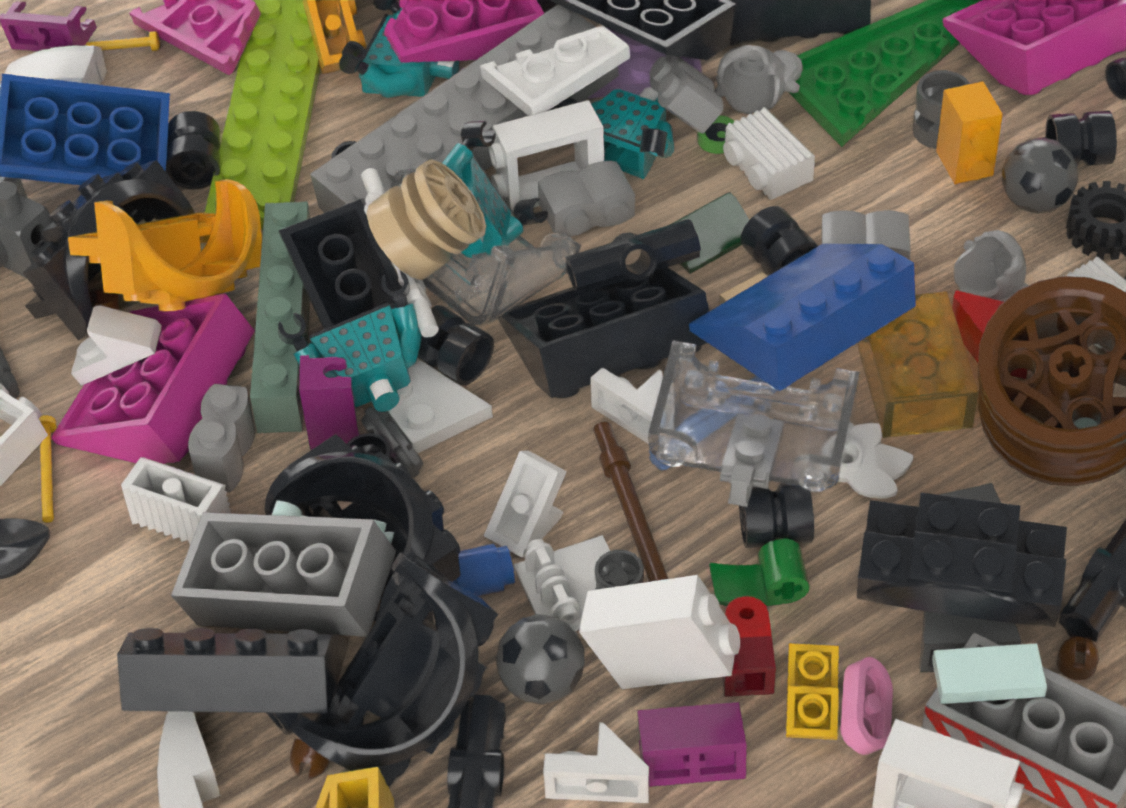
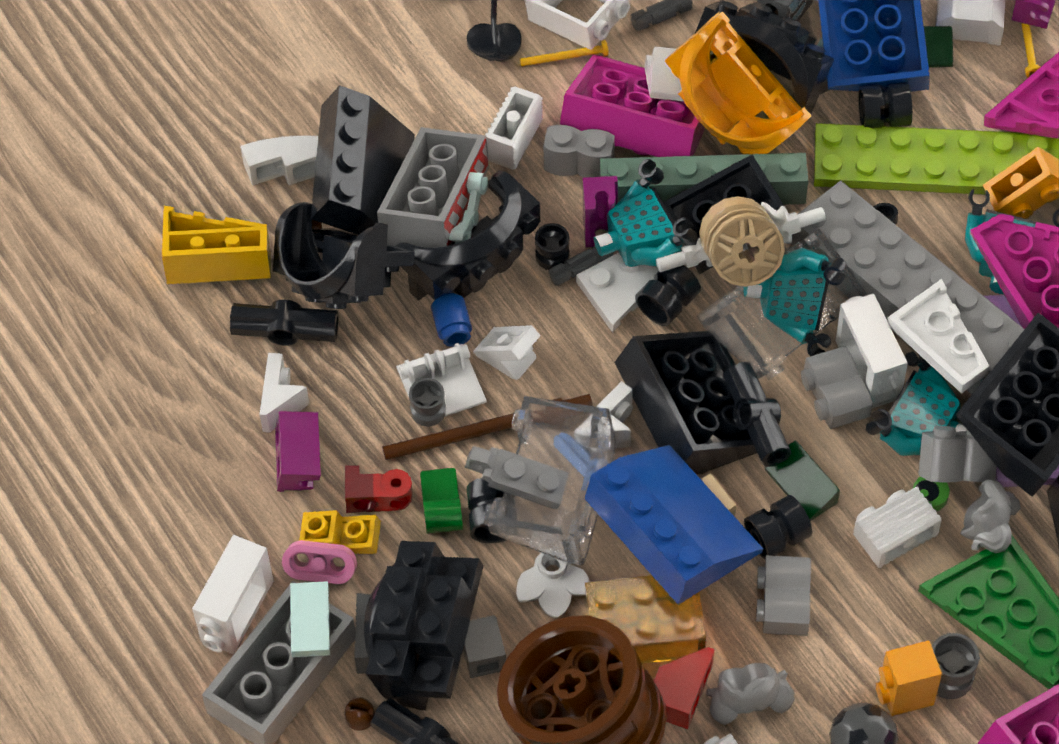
camera: 90 degrees right, 10 degrees up
(540, 659) = (363, 353): dark grey piece -> none
(659, 632) = (365, 416): white brick -> none

